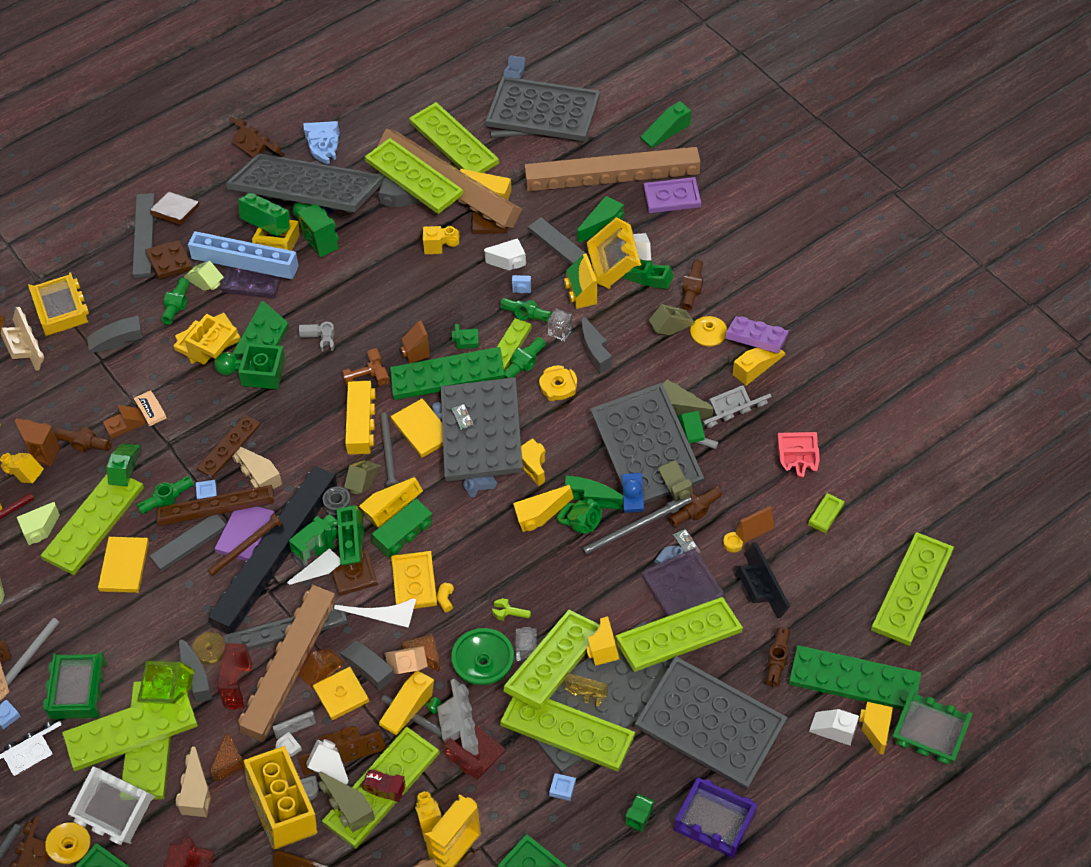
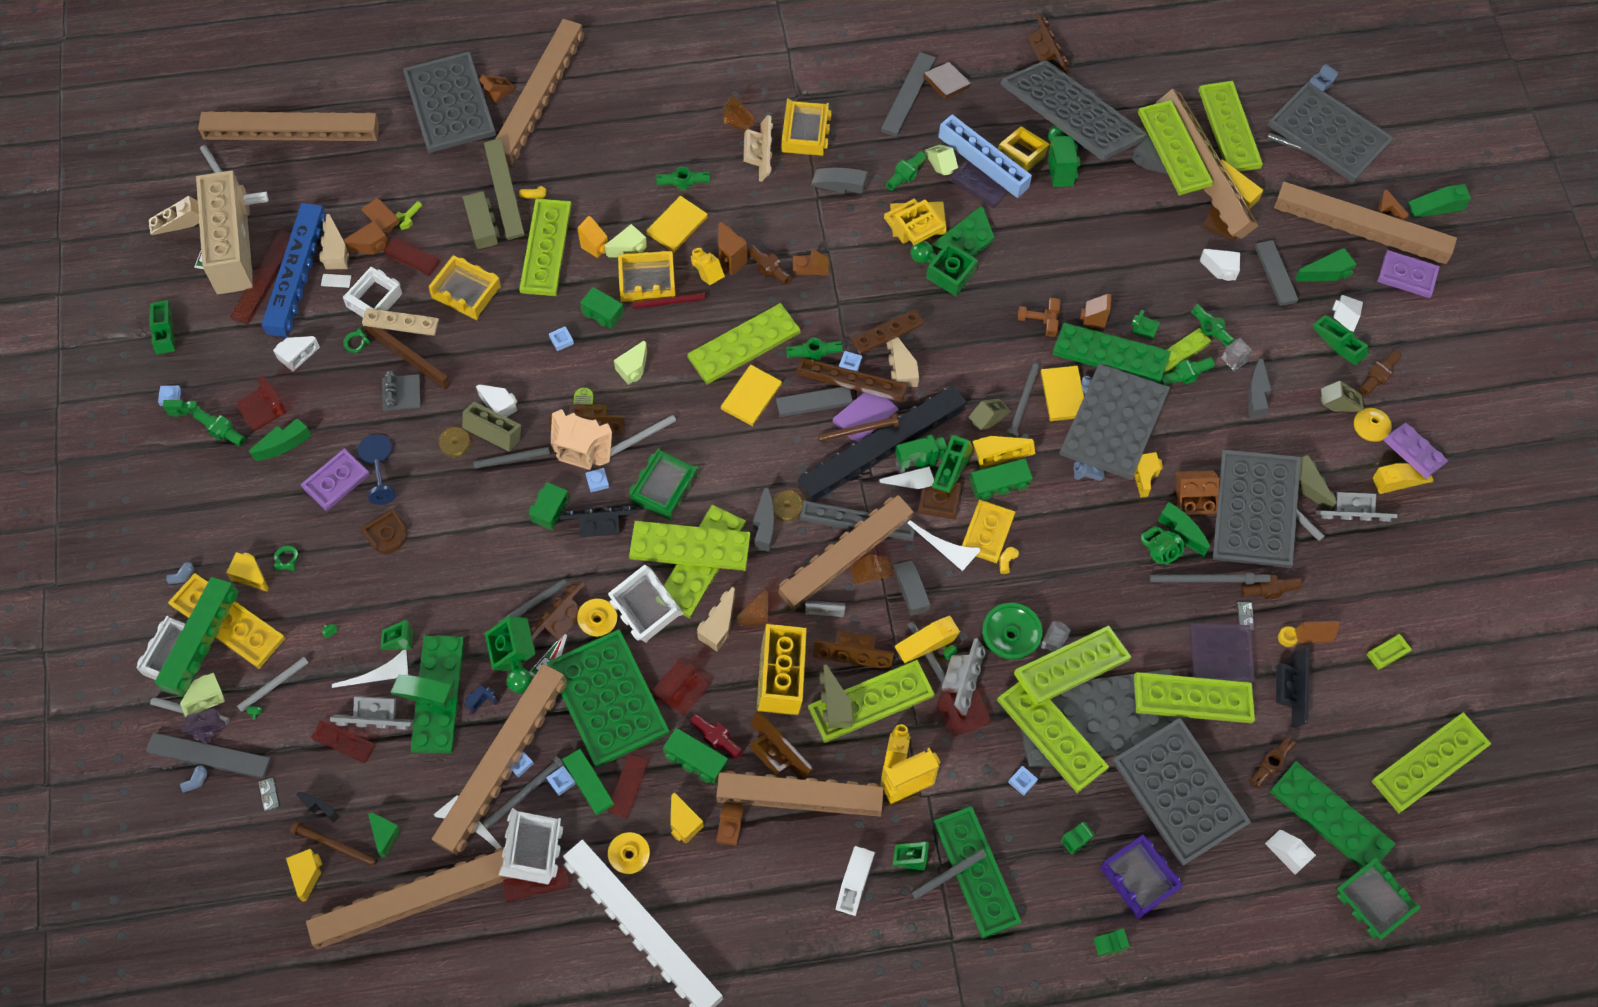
camera: 25 degrees right, 10 degrees up
(38, 523) = (698, 324): yellowish green slope -> none
(122, 464) = (791, 304): green slope -> none
(150, 408) = (838, 262): light nougat slope -> none
(165, 682) = (735, 521): clear neon green slope -> none
(168, 259) = (918, 128): reddish brown plate -> none
(235, 659) = (801, 528): clear red panel -> none
(264, 214) = (1021, 125): green brick -> none
(290, 744) = (811, 623): white tile -> none
(310, 786) = (811, 670): light grey tile -> none
(322, 139) = (1110, 72): light blue piece -> none
(325, 330) = (1023, 260): light grey bar -> none
(327, 760) = (836, 656): white slope -> none
(333, 495) = (959, 420): dark grey wheel -> none
(340, 693) = (877, 601): yellow plate -> none
(359, 417) = (1013, 357): yellow brick -> none
(384, 785) = (873, 702): dark red leg -> none
(407, 660) = (945, 601): light nougat slope -> none
(429, 647) = (965, 599): clear orange slope -> none
(435, 237) = (1167, 216): yellow brick -> none
(462, 416) = (1103, 402): light grey sticker -> none
(507, 610) = (1056, 599): lime bar -> none
(521, 284) = (1221, 298): light blue plate -> none
(540, 508) = (1128, 521): yellow slope -> none
(558, 392) = (1206, 419): yellow plate -> none
(581, 283) = (1276, 323): yellow slope -> none
(587, 456) = (1197, 492): none -> dark orange slope
(587, 687) = (1088, 705): clear yellow plate -> none
(602, 644) = (1121, 673): yellow arch -> none
(613, 252) = (1321, 308): yellow window -> none
(627, 146) = (1390, 206): none -> dark orange slope
(633, 492) = (1220, 547): blue tile -> none
(668, 553) = (1224, 618): sand blue arm -> none
(675, 481) = (1264, 556): olive bracket -> none
(692, 426) = (1307, 510): green slope -> none
(799, 451) = (1394, 582): coral plate -> none
(876, 724) = (1328, 869): yellow slope -> none

